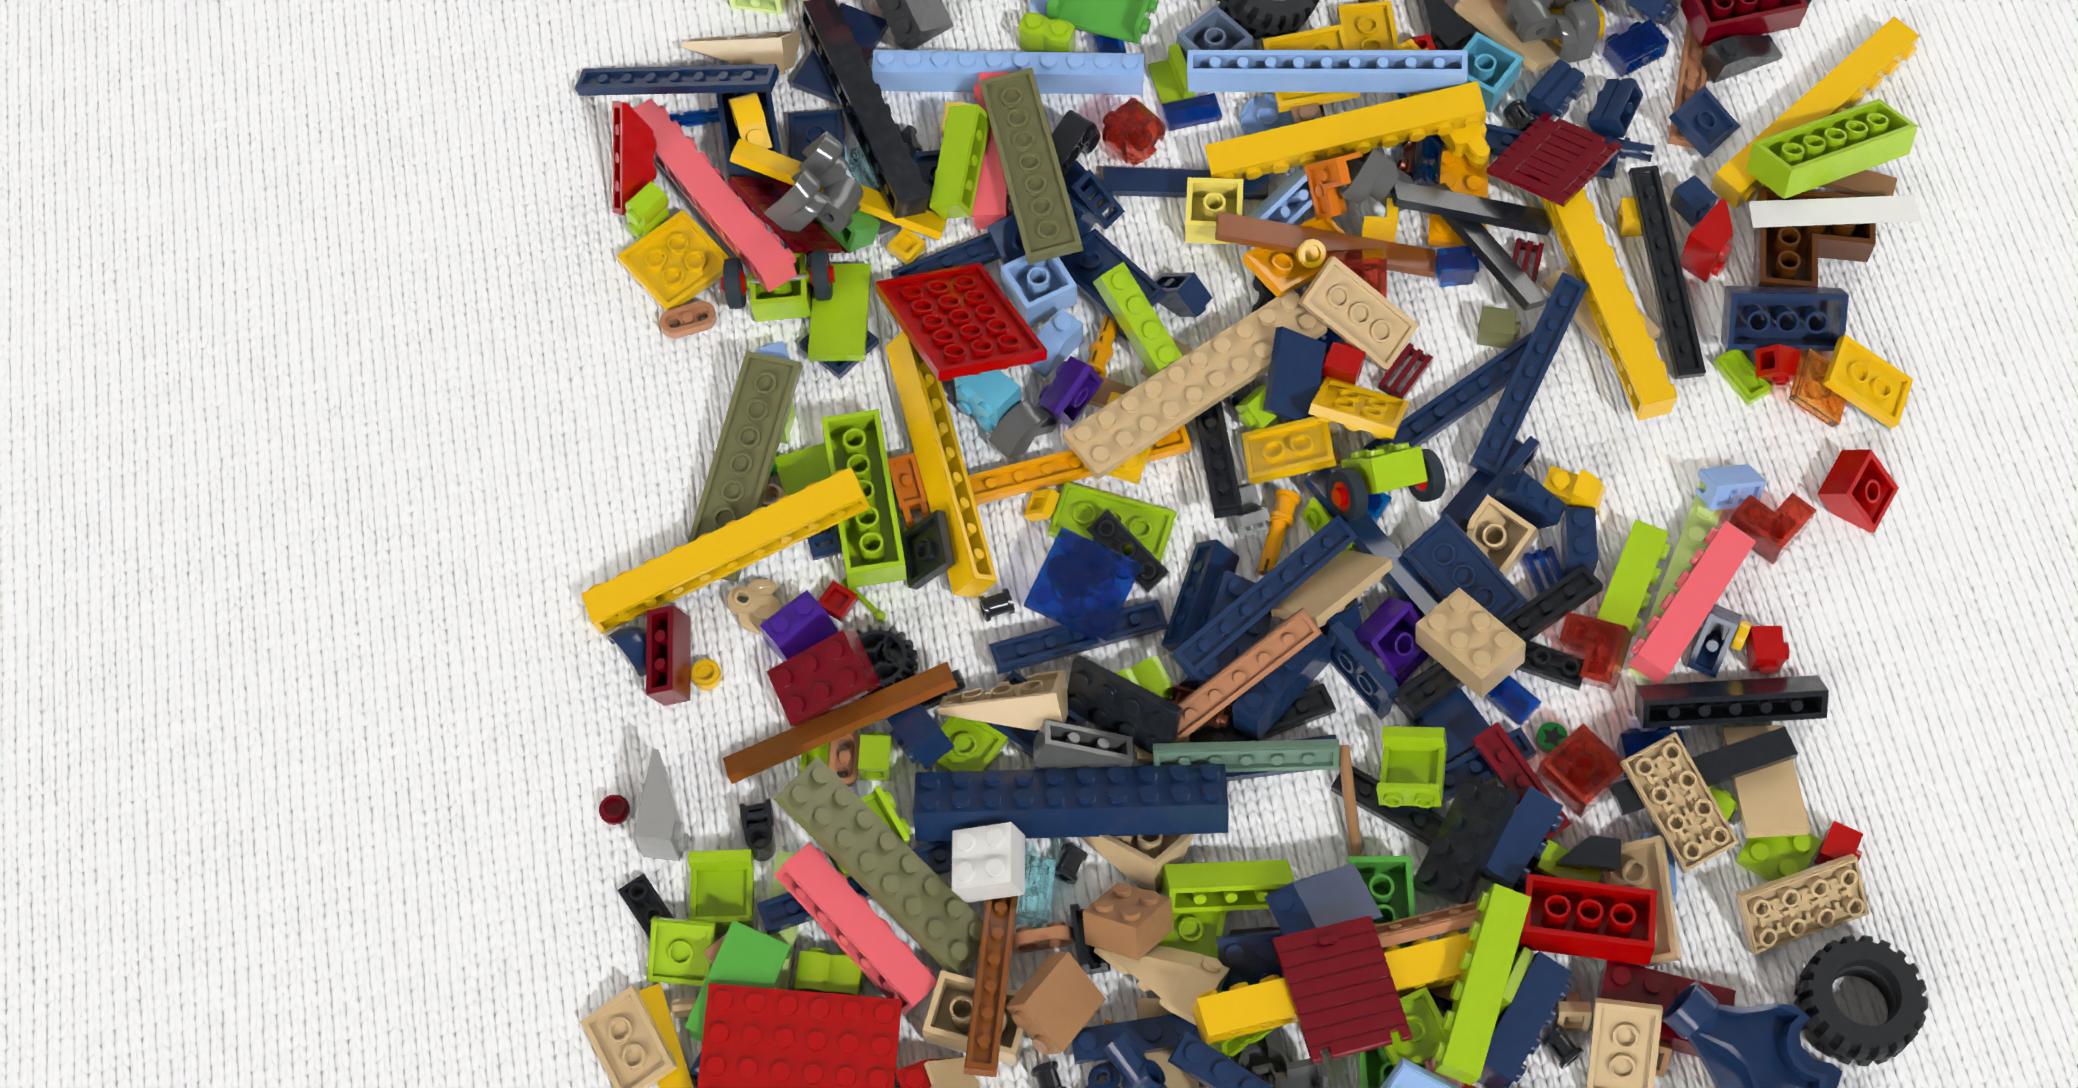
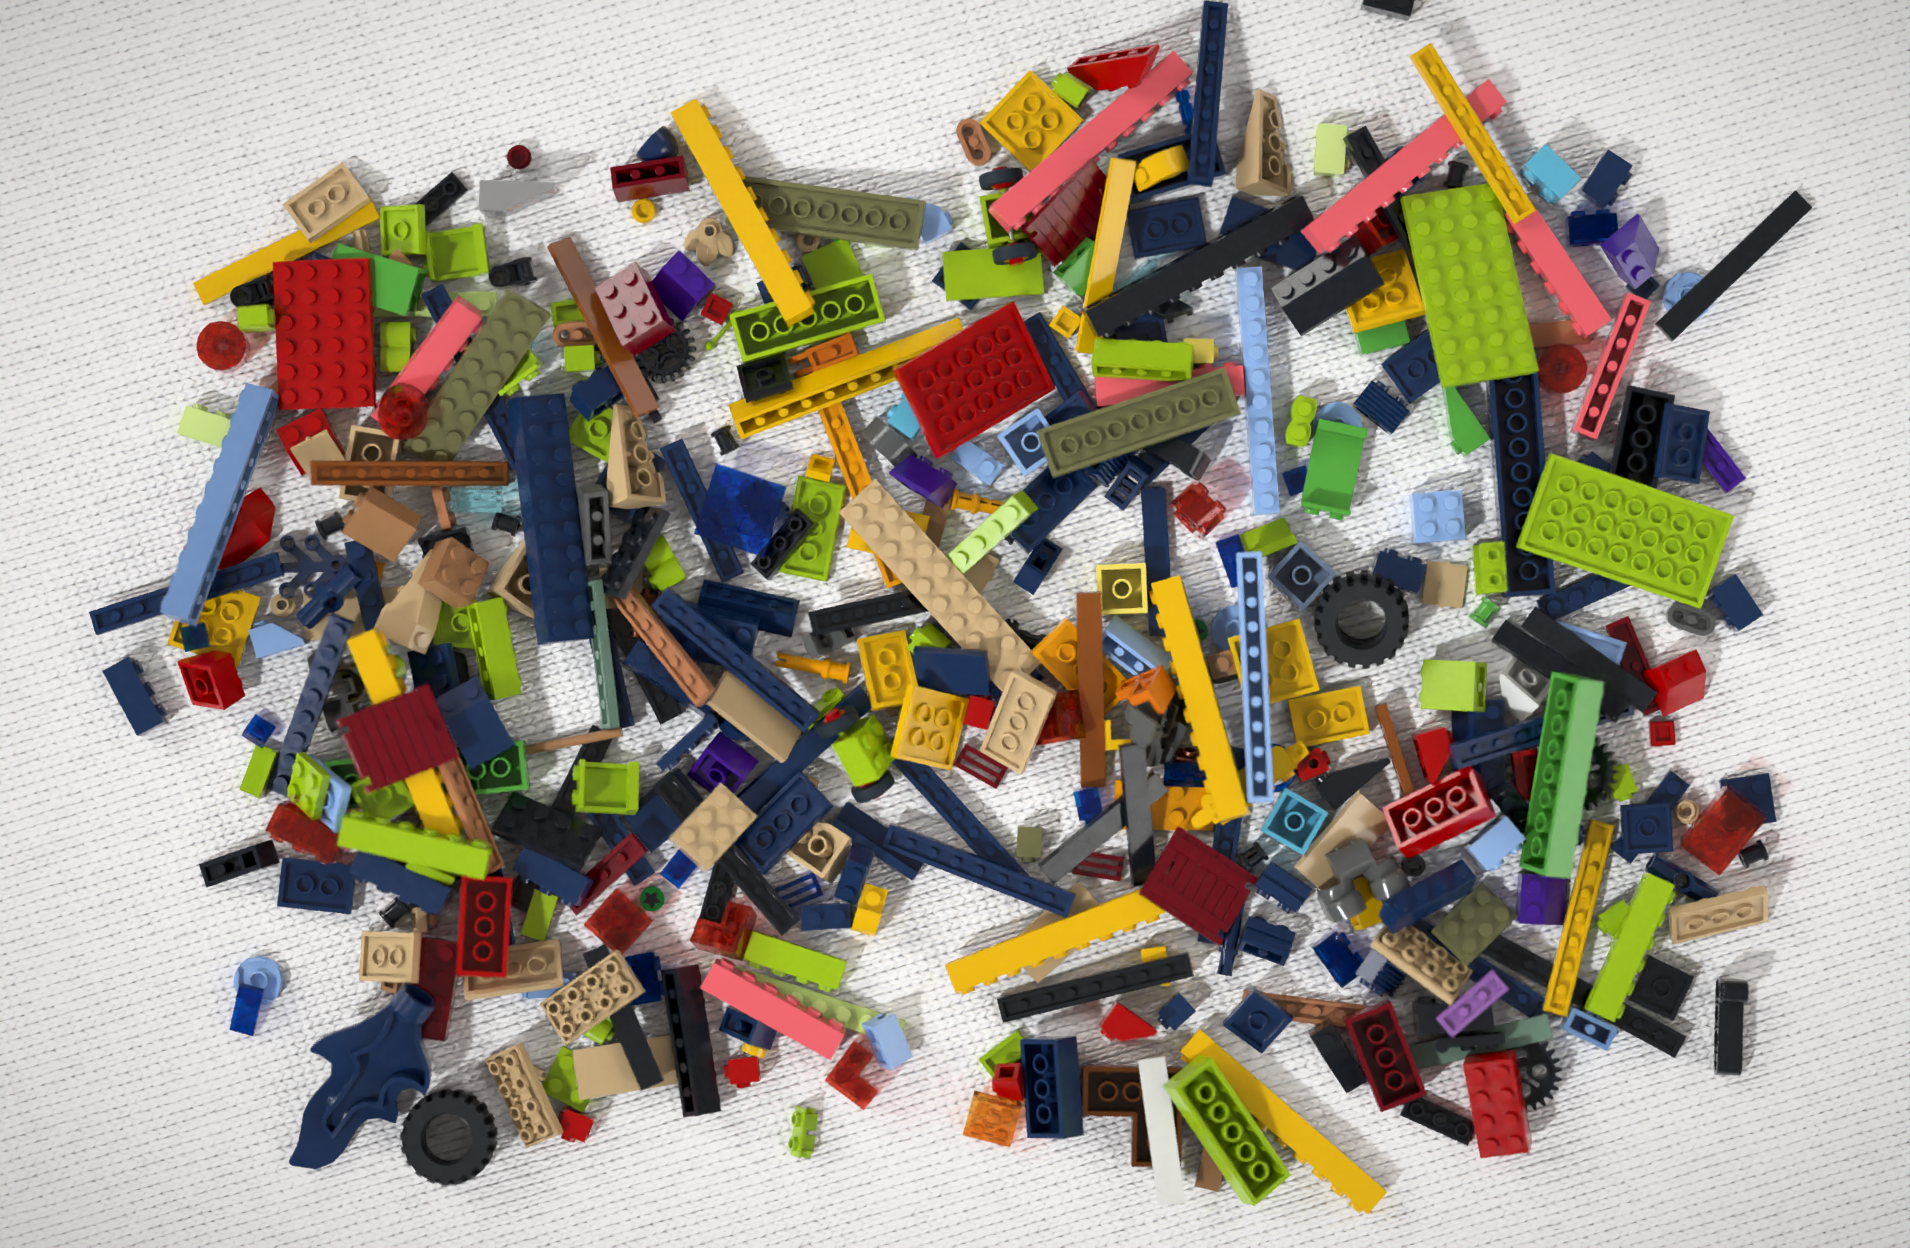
camera: 80 degrees right, 25 degrees up
(804, 202) = (1080, 257): dark grey piece -> none
(914, 954) = (403, 425): none -> clear red brick
(988, 862) = (488, 460): white brick -> none
(1311, 253) = (1074, 676): yellow tile -> none
(1595, 853) = (547, 932): black slope -> none
(1843, 595) = (800, 1143): none -> lime hinge
(1858, 489) = (898, 1148): red slope -> none
(1868, 381) = (998, 1158): yellow plate -> none

